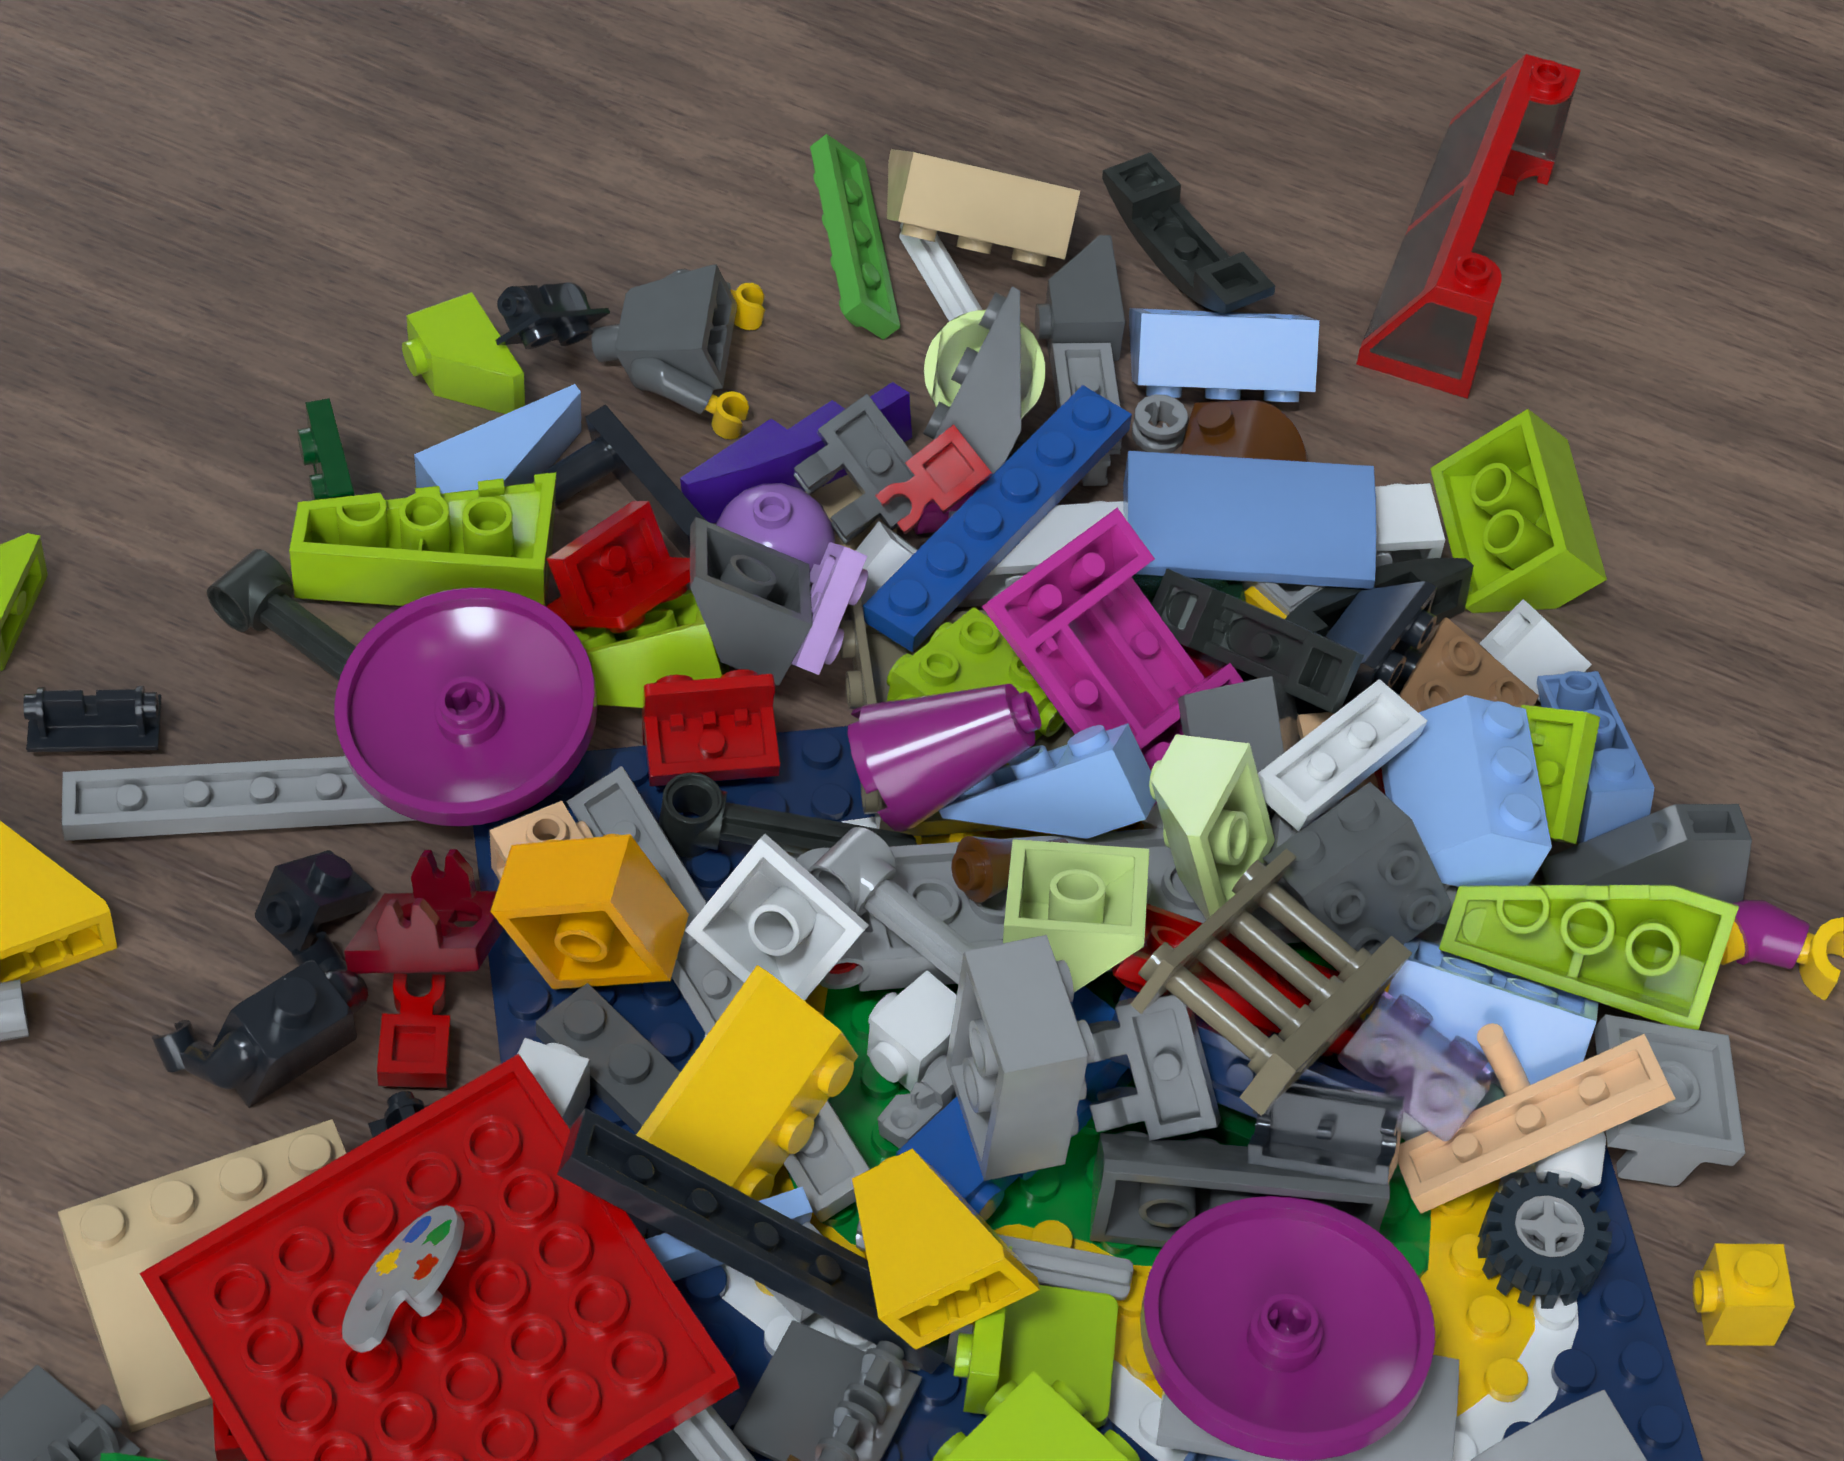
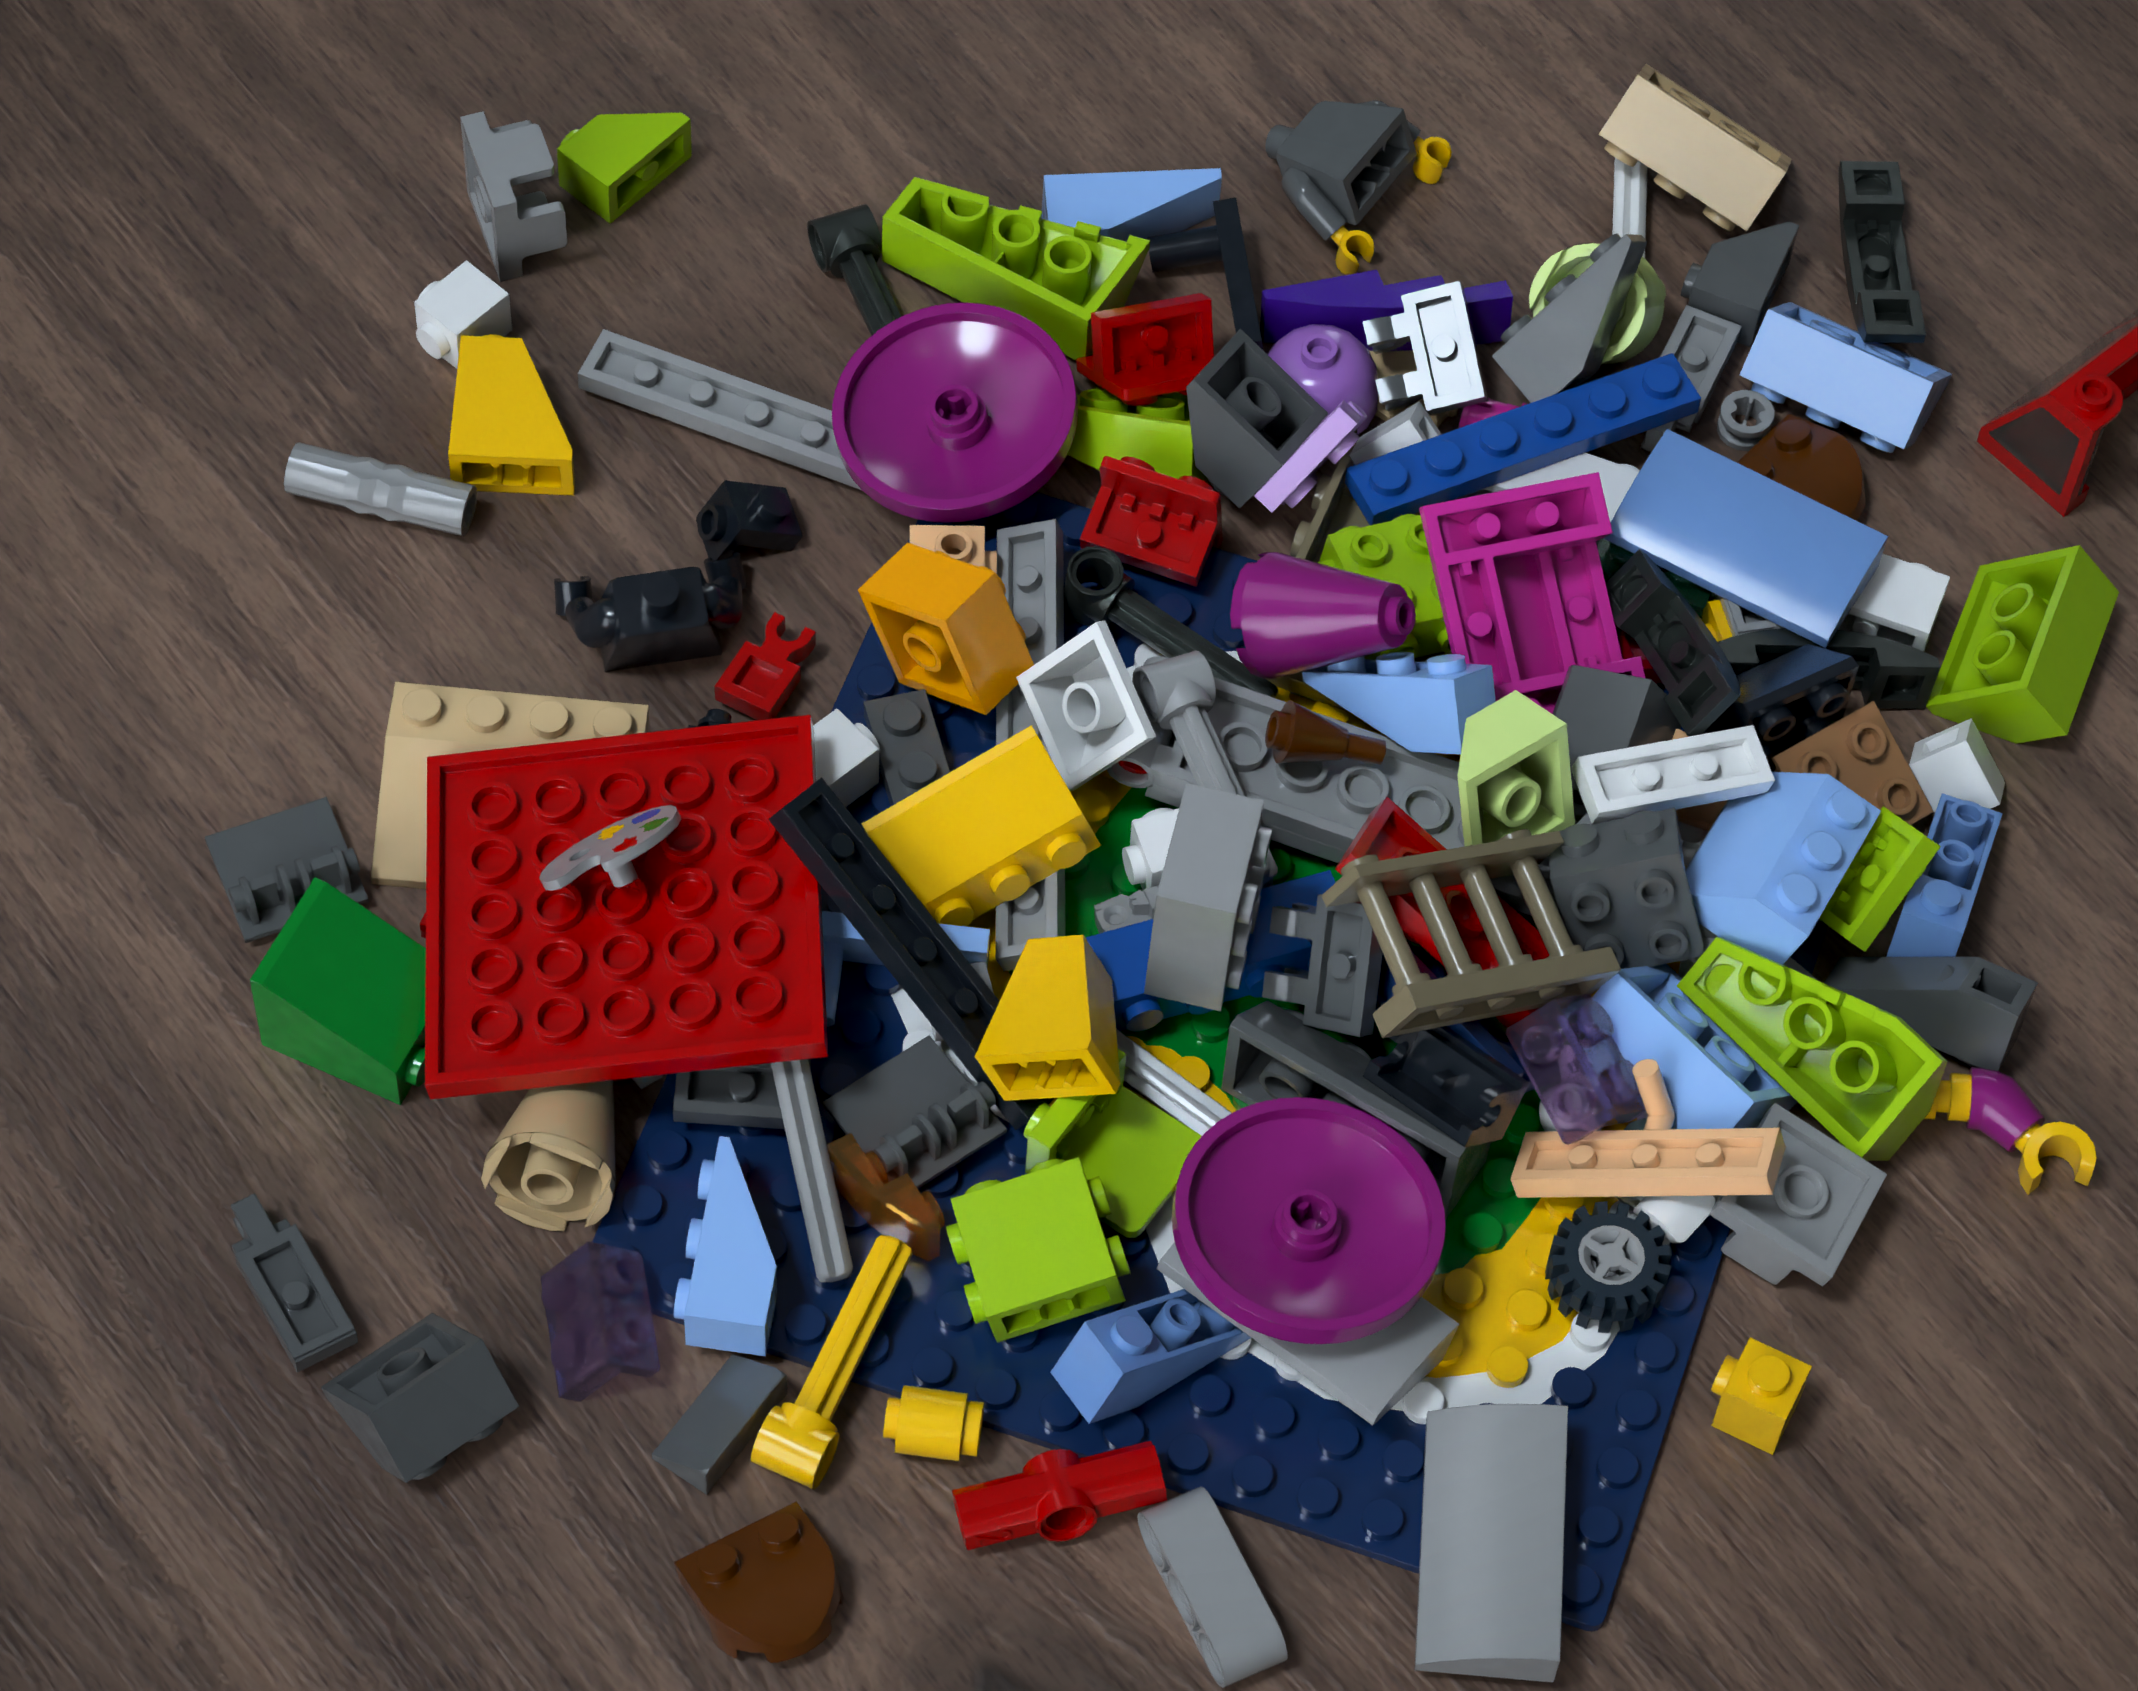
camera: 30 degrees right, 5 degrees up
(92, 722) = (654, 296): black hinge -> none
(323, 450) = (970, 139): dark green plate -> none
(408, 928) = (791, 581): dark red piece -> none
(460, 358) = (1145, 102): lime slope -> none
(547, 315) = (1251, 102): black hinge -> none
(854, 238) = (1566, 133): bright green plate -> none
(942, 474) = (1488, 382): red plate -> none
(1082, 899) = (1331, 796): yellowish green slope -> none

